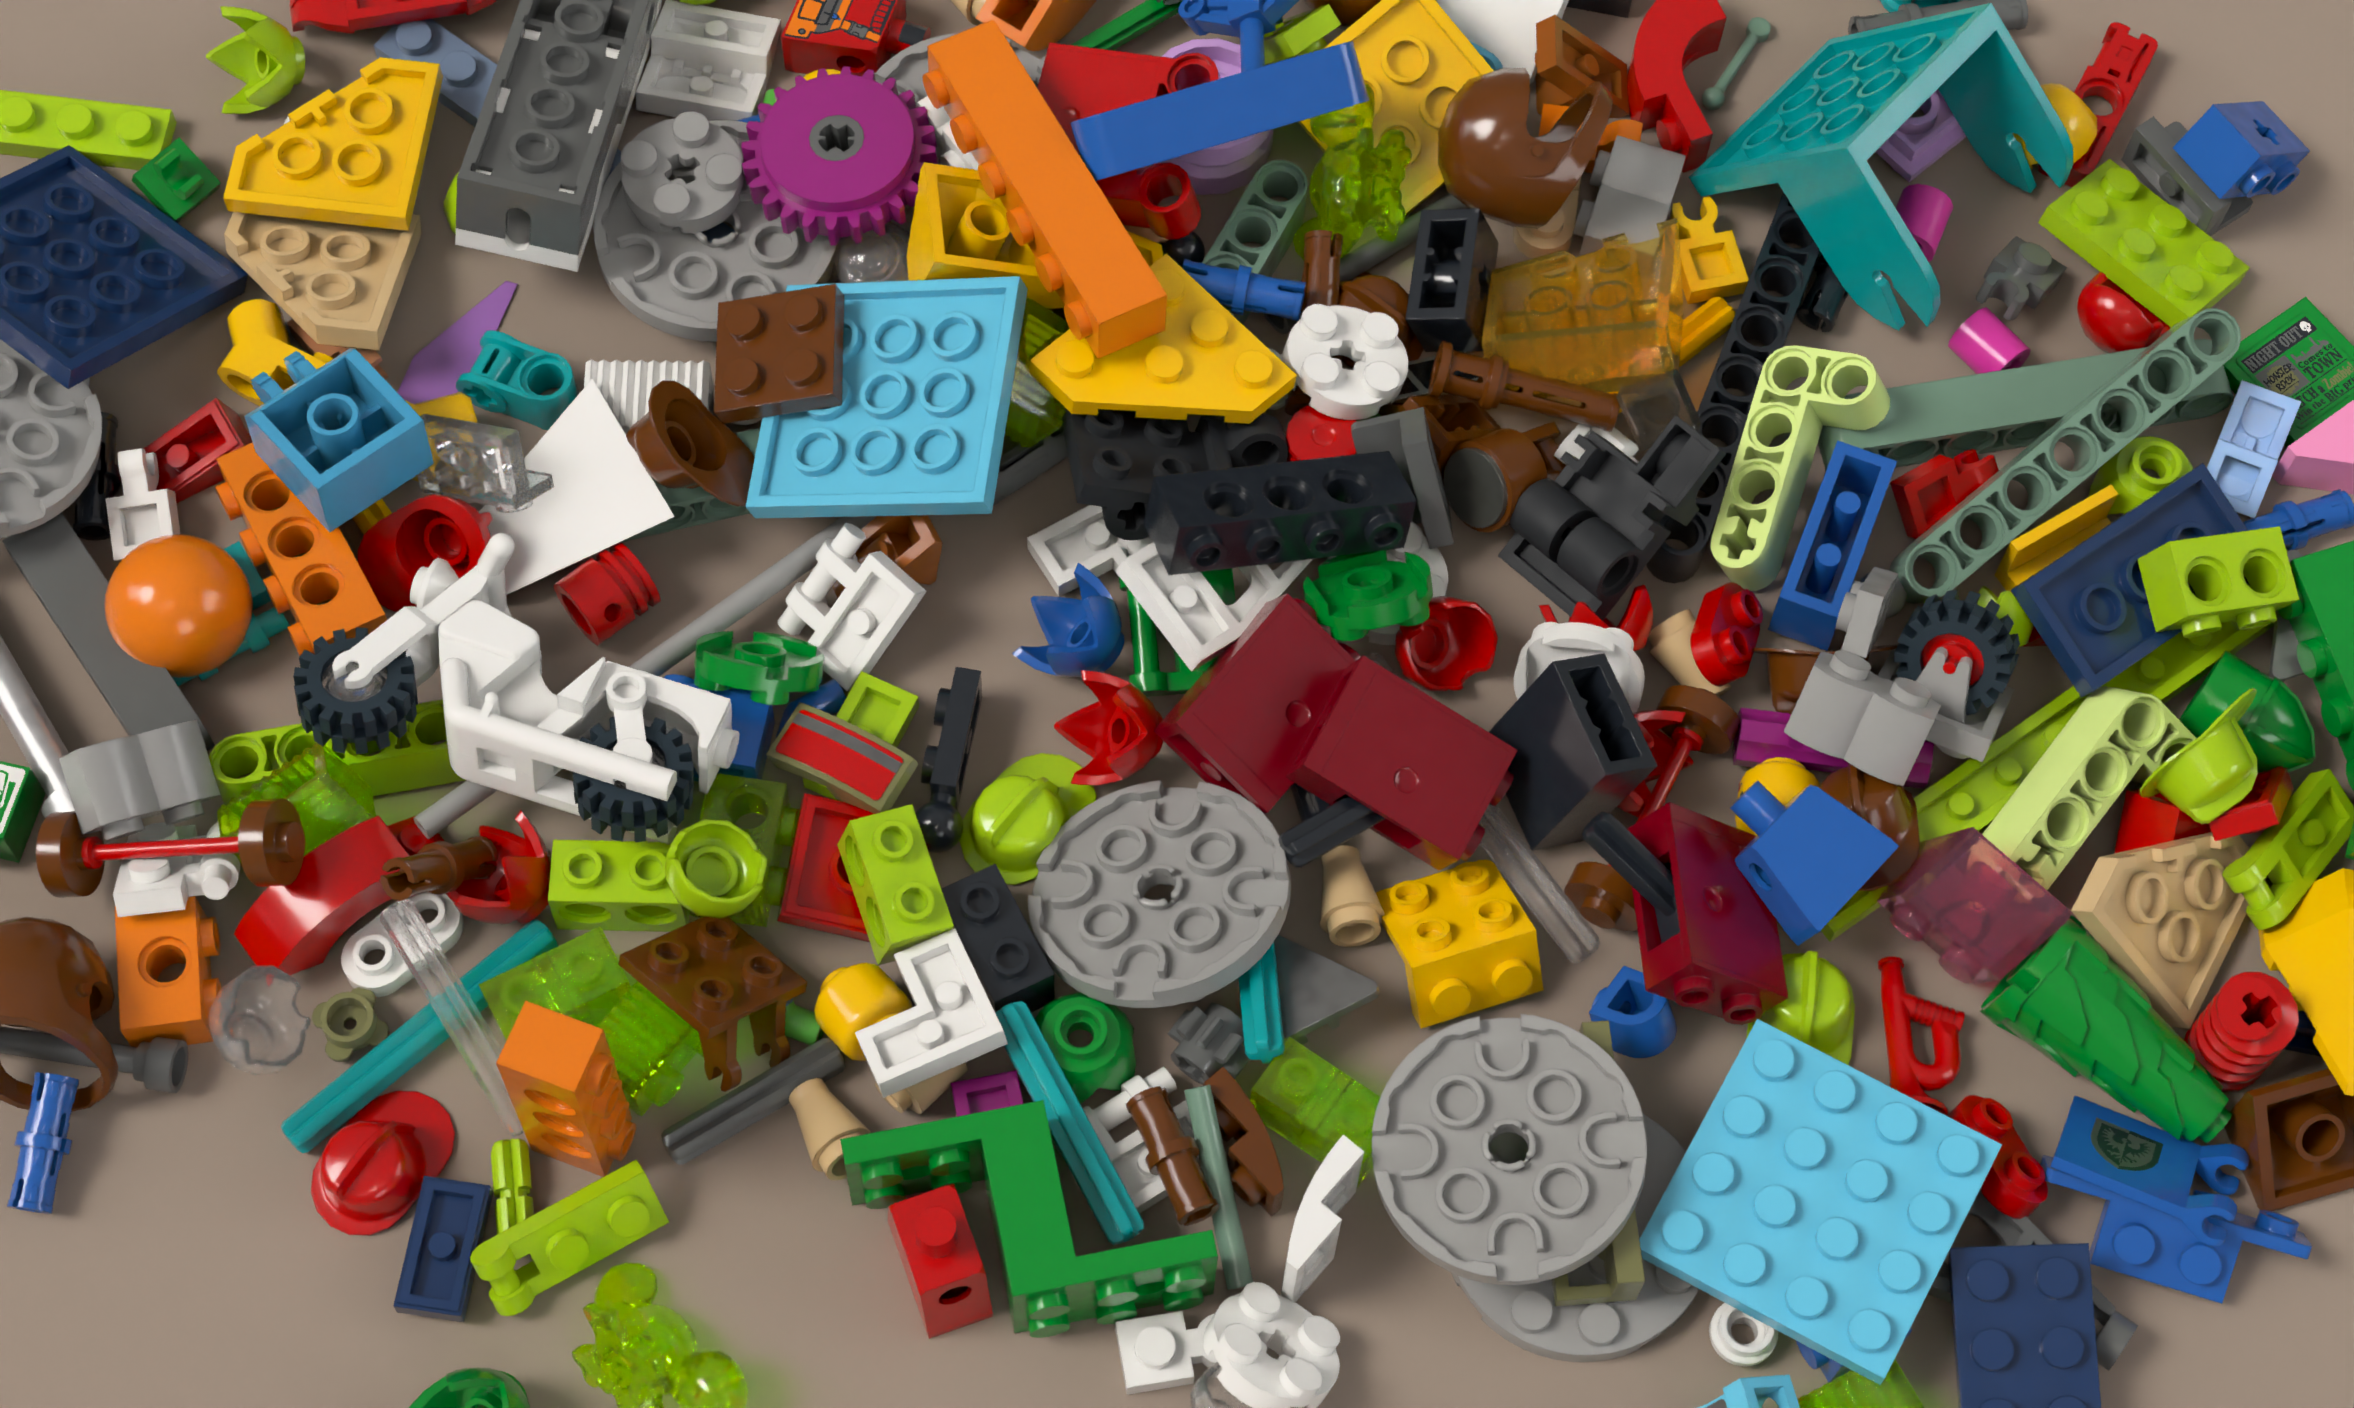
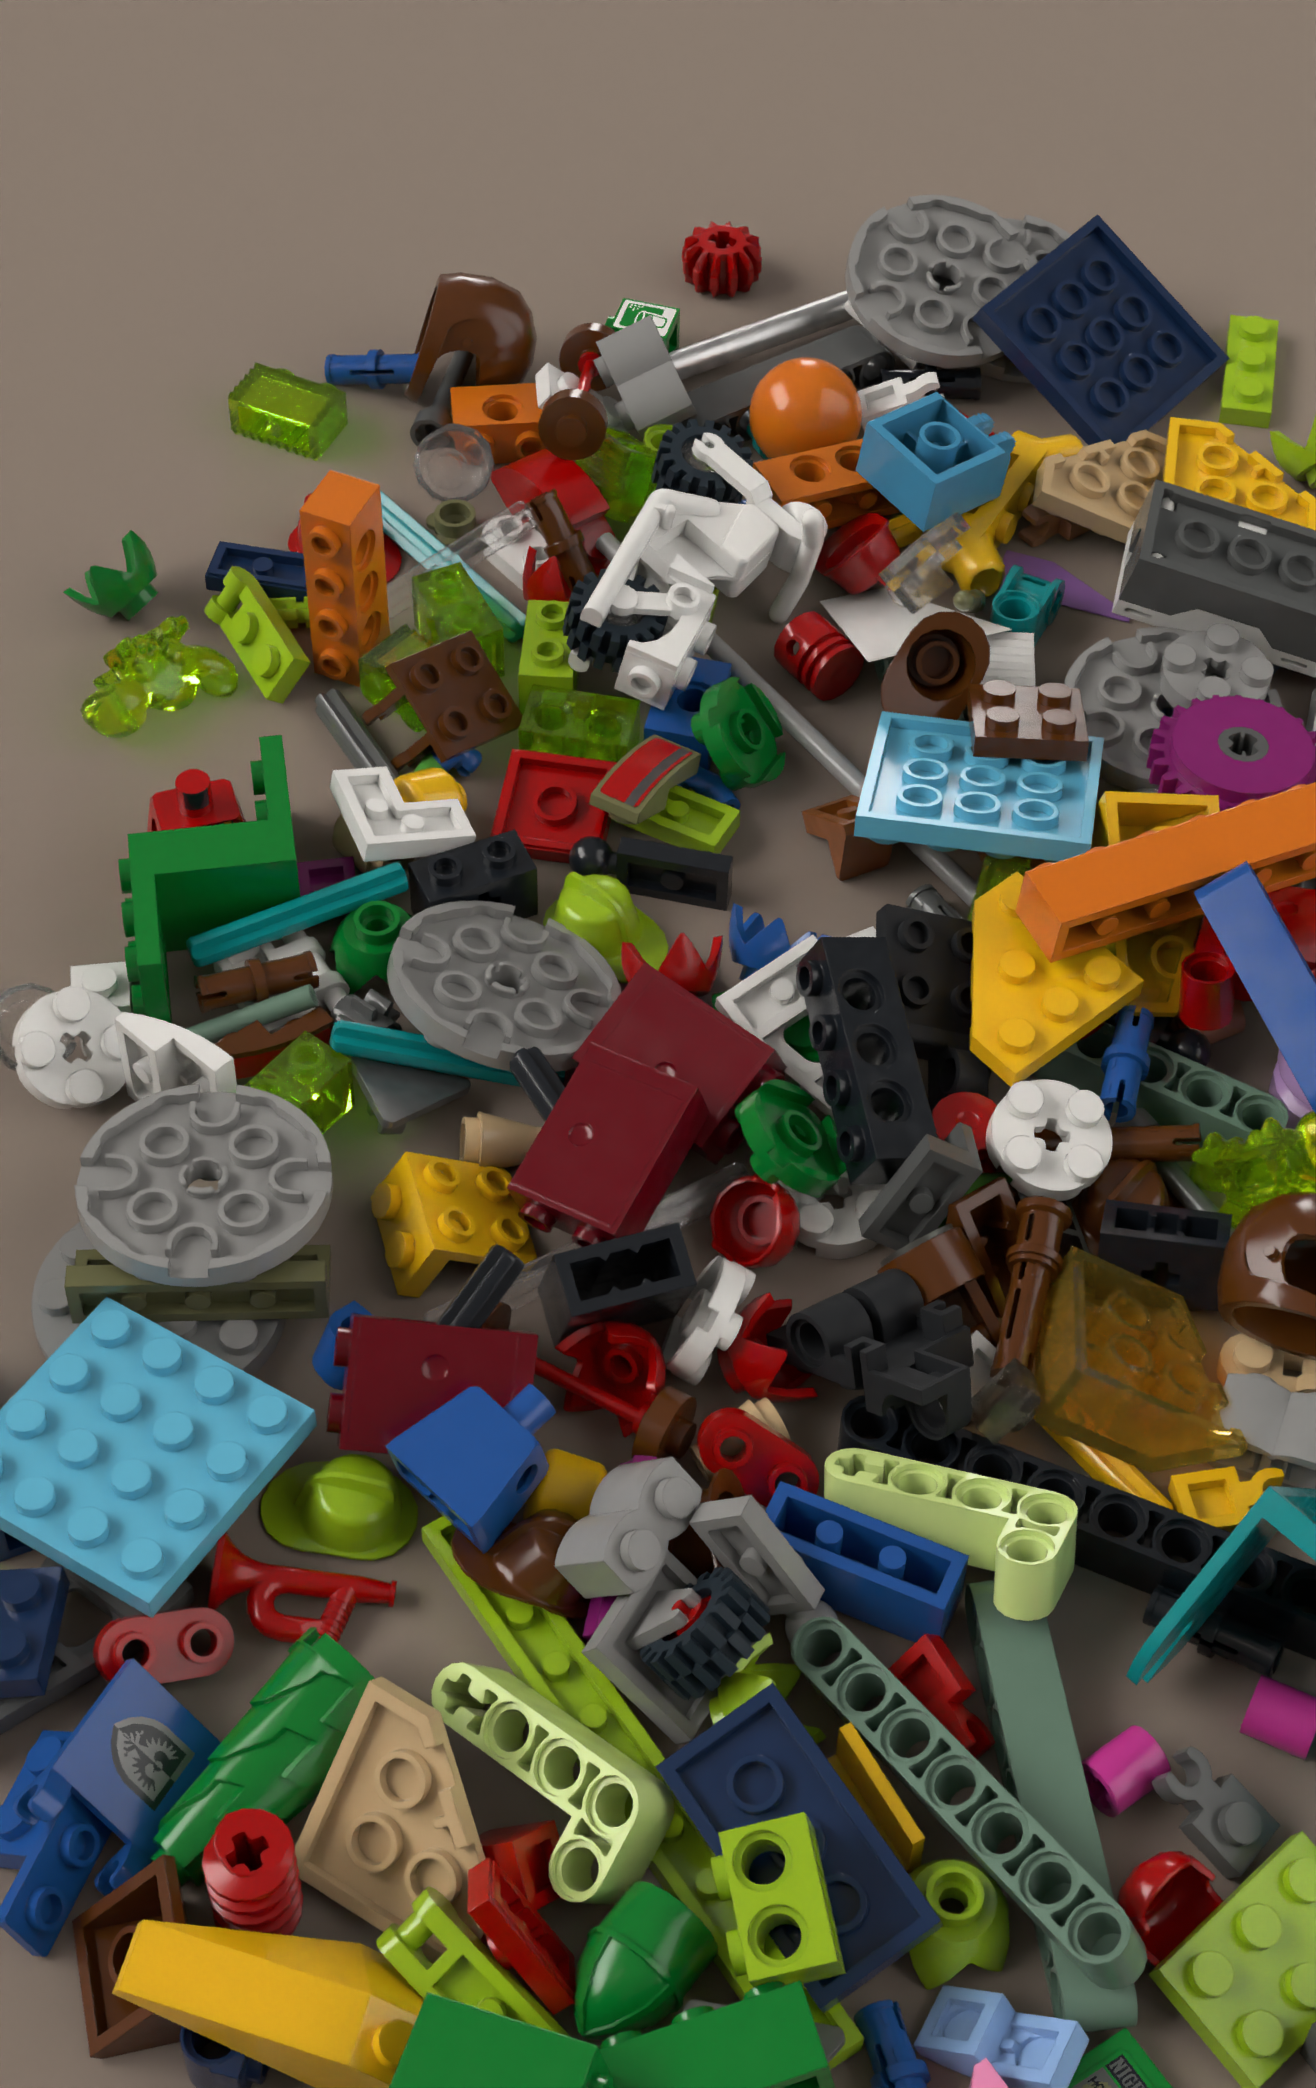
camera: 95 degrees right, 15 degrees down
(123, 1249) = (287, 411): none -> clear neon green brick
(176, 180) = (1205, 405): green tile -> none
(542, 423) = (969, 600): none -> olive piece
(714, 868) = (537, 678): lime hair -> none
(823, 1124) = (311, 790): tan cone -> none
(865, 615) = (799, 797): white plate -> none
(893, 881) = (533, 798): lime brick -> none
(1972, 907) = (430, 1621): clear pink slope -> none
(2211, 770) = (551, 1860): lime piece -> none

